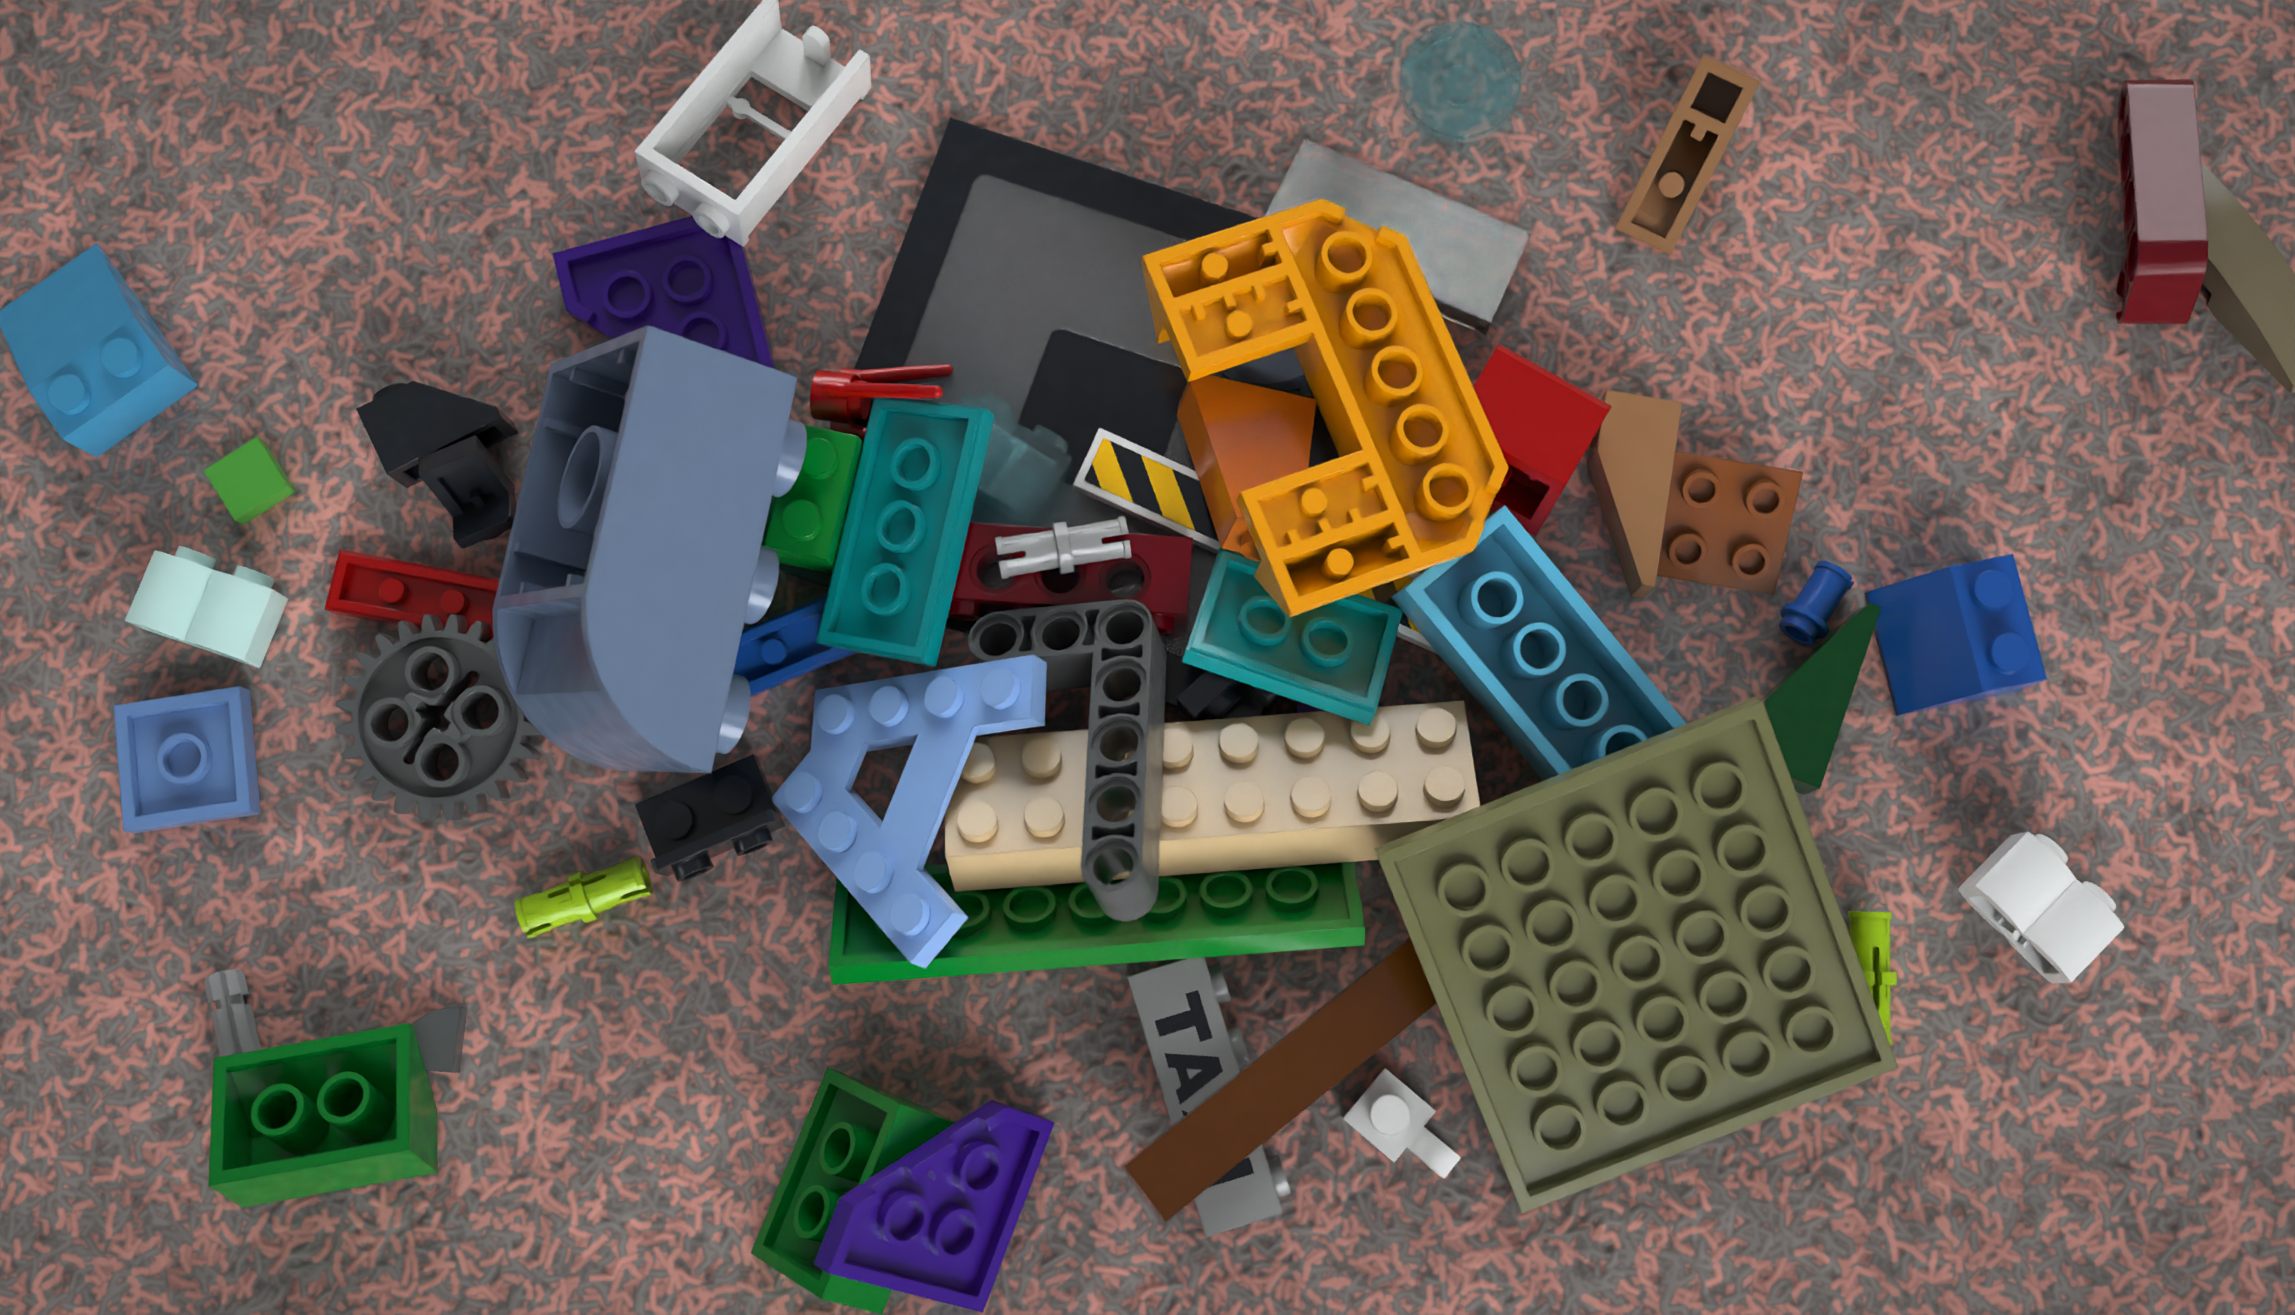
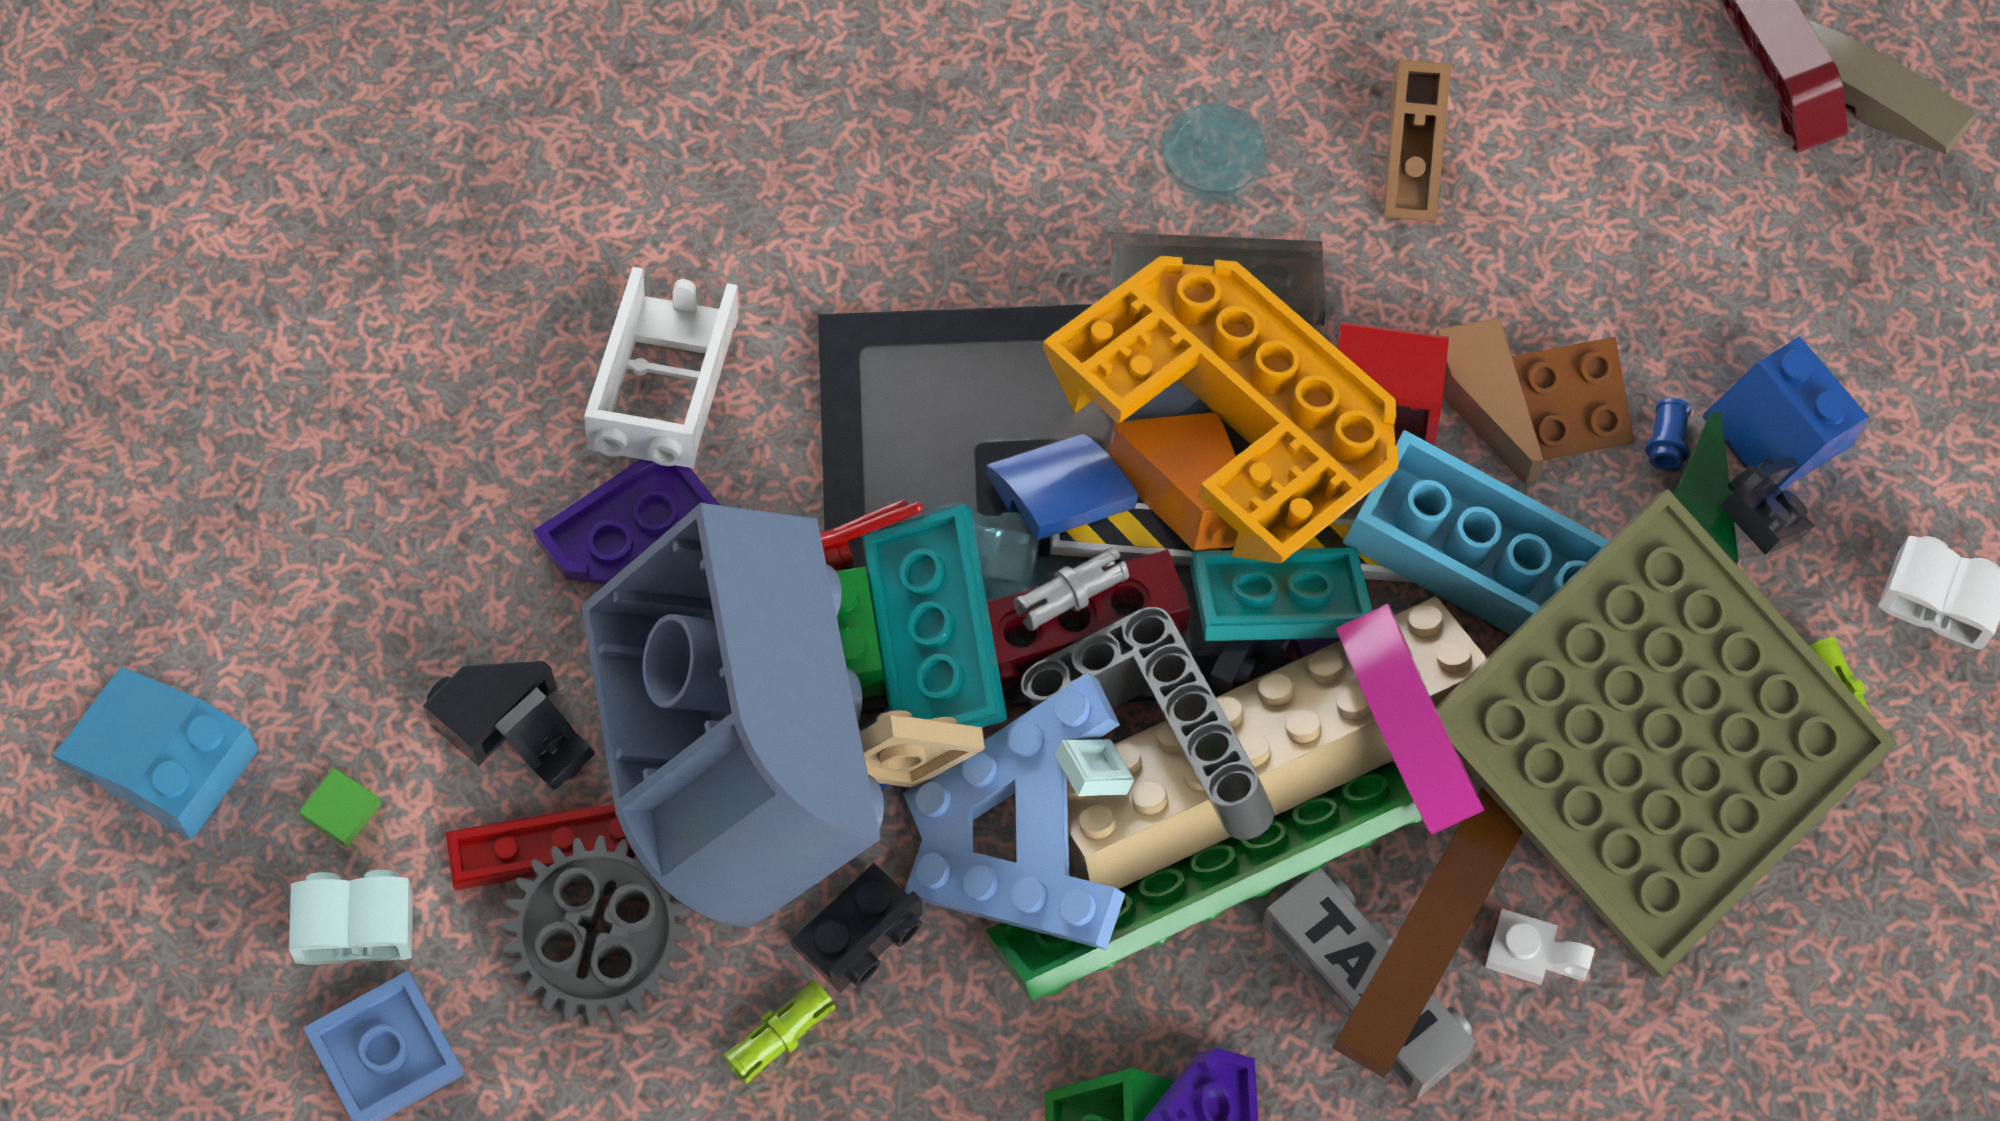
camera: 30 degrees left, 15 degrees down
(798, 657) = (913, 750): none -> tan plate
(995, 763) = (1094, 767): none -> light aqua tile
(1115, 418) = (1062, 485): none -> blue slope
(1354, 842) = (1409, 720): none -> dark pink slope
(1879, 739) = (1765, 511): none -> black bracket

